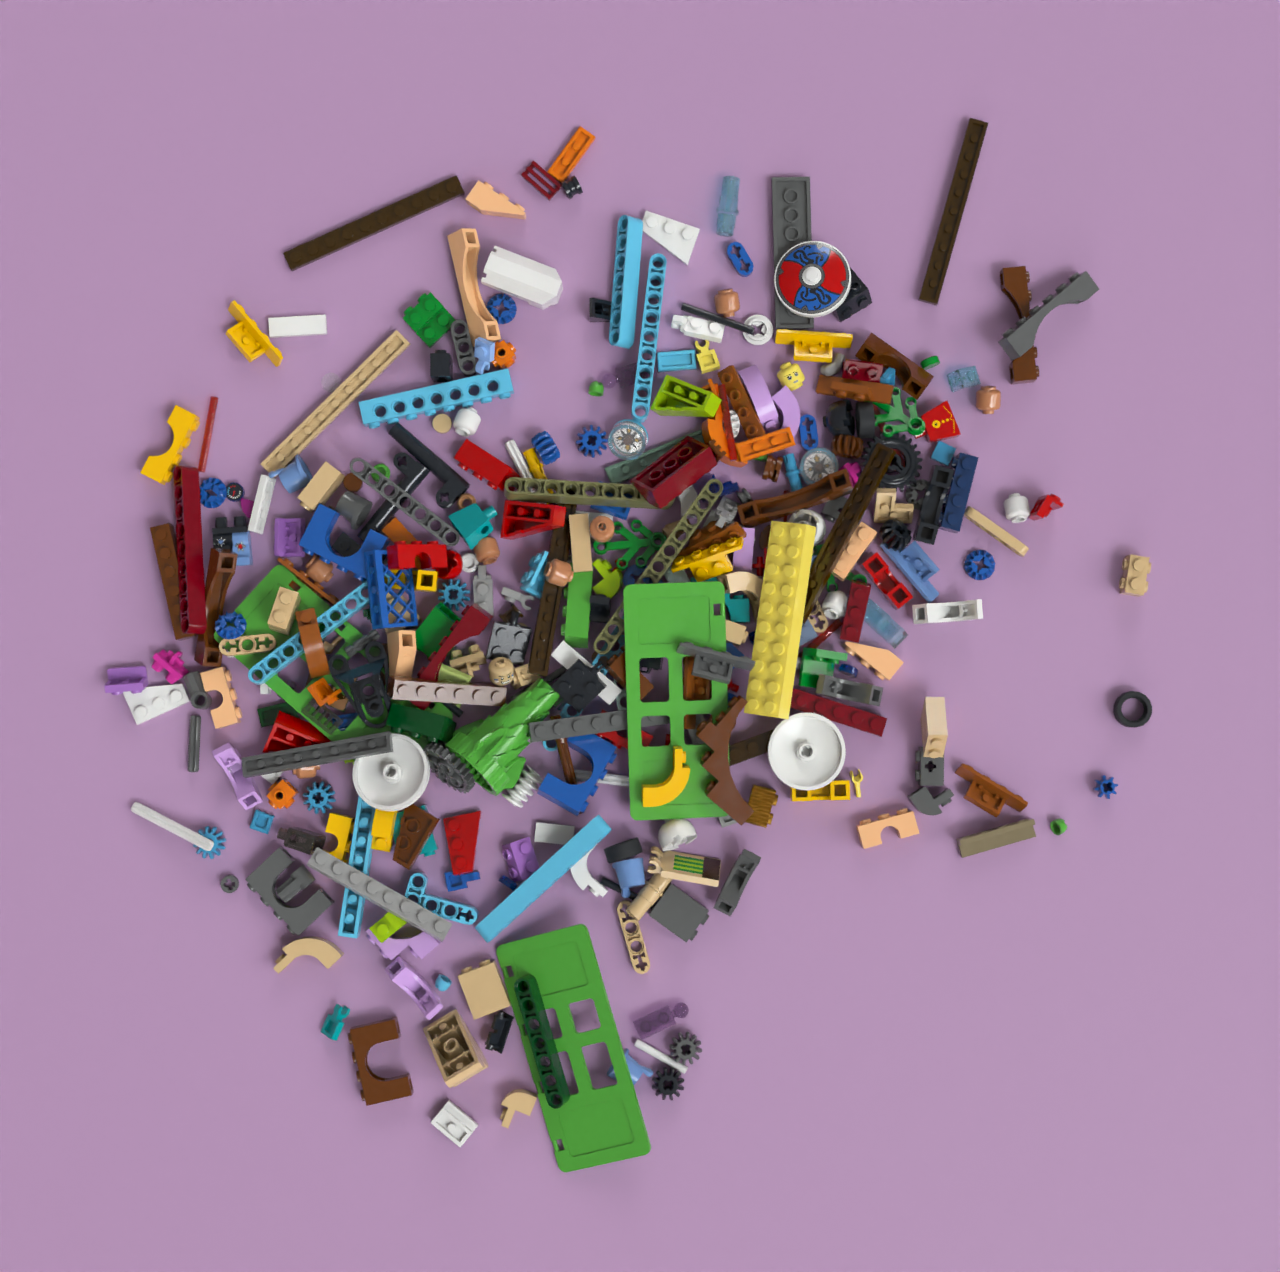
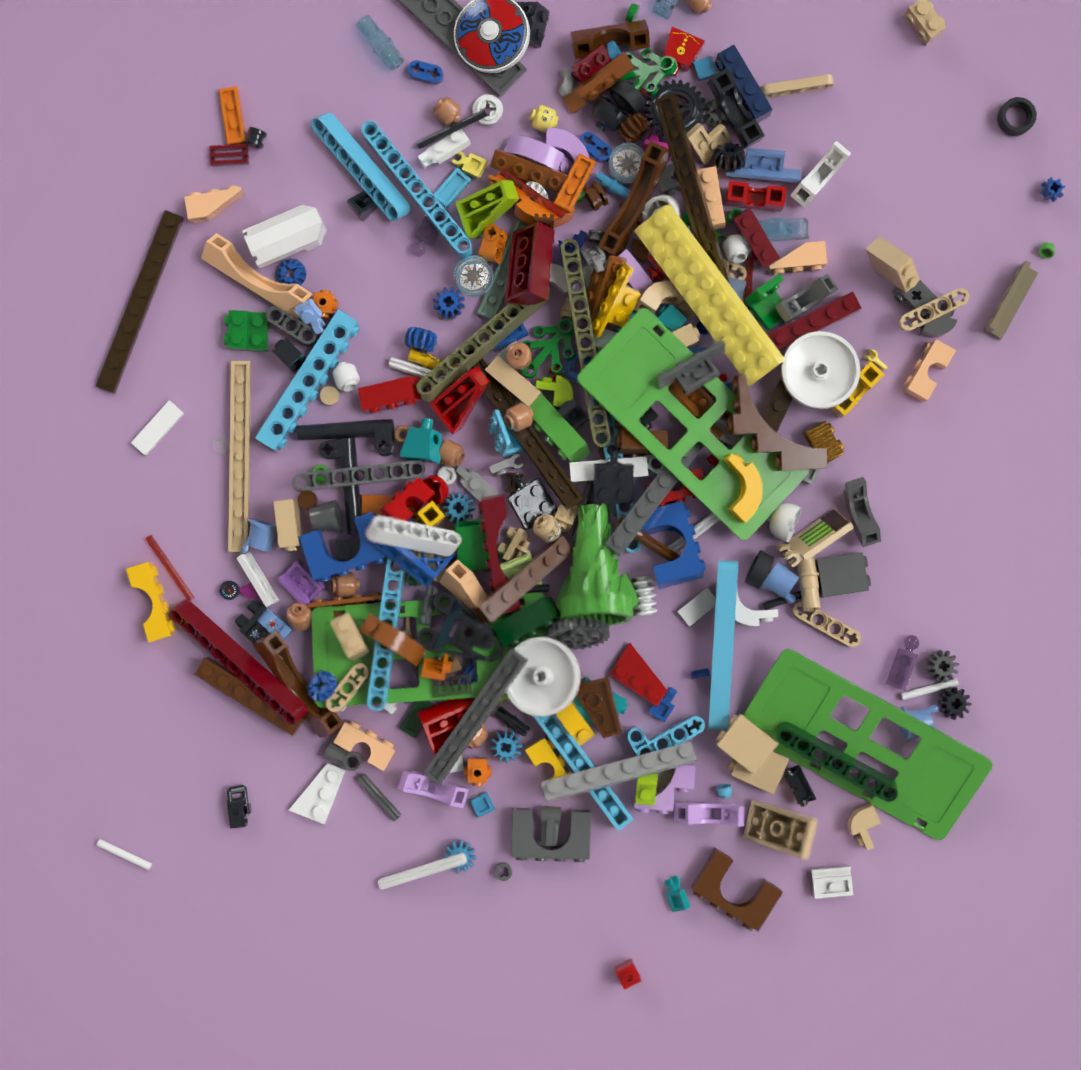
camera: 35 degrees left, 0 degrees up
(88, 651) = (237, 808): none -> black piece
(126, 679) = (285, 799): medium lavender bracket -> none
(171, 663) = (306, 755): dark pink hips -> none
(219, 489) = (215, 598): blue gear -> none
(245, 1044) = (627, 974): none -> red brick
(249, 338) = (132, 469): yellow bracket -> none
(264, 560) = (299, 617): none -> nougat head
(301, 839) = (529, 785): clear smoke torso -> none
(317, 947) = (608, 855): tan arch -> none
(341, 783) = (512, 721): none -> black axle
(398, 583) = (413, 536): none -> white beam
(489, 963) = (746, 743): none -> tan brick
(520, 859) = (692, 648): medium lavender bracket -> none
(596, 389) = (415, 263): bright green hinge -> none
(664, 431) = (493, 246): none -> orange piece
(671, 234) = (360, 102): white wing -> none
(813, 345) = (537, 81): yellow bracket -> none
(848, 670) = (790, 286): clear blue tile -> none
(930, 791) = (933, 309): none -> tan beam
(971, 568) = (806, 129): blue gear -> none
(987, 793) = (975, 275): dark orange bracket -> none
(1016, 508) = (795, 55): white head -> none
(1044, 506) = (814, 33): red bracket -> none

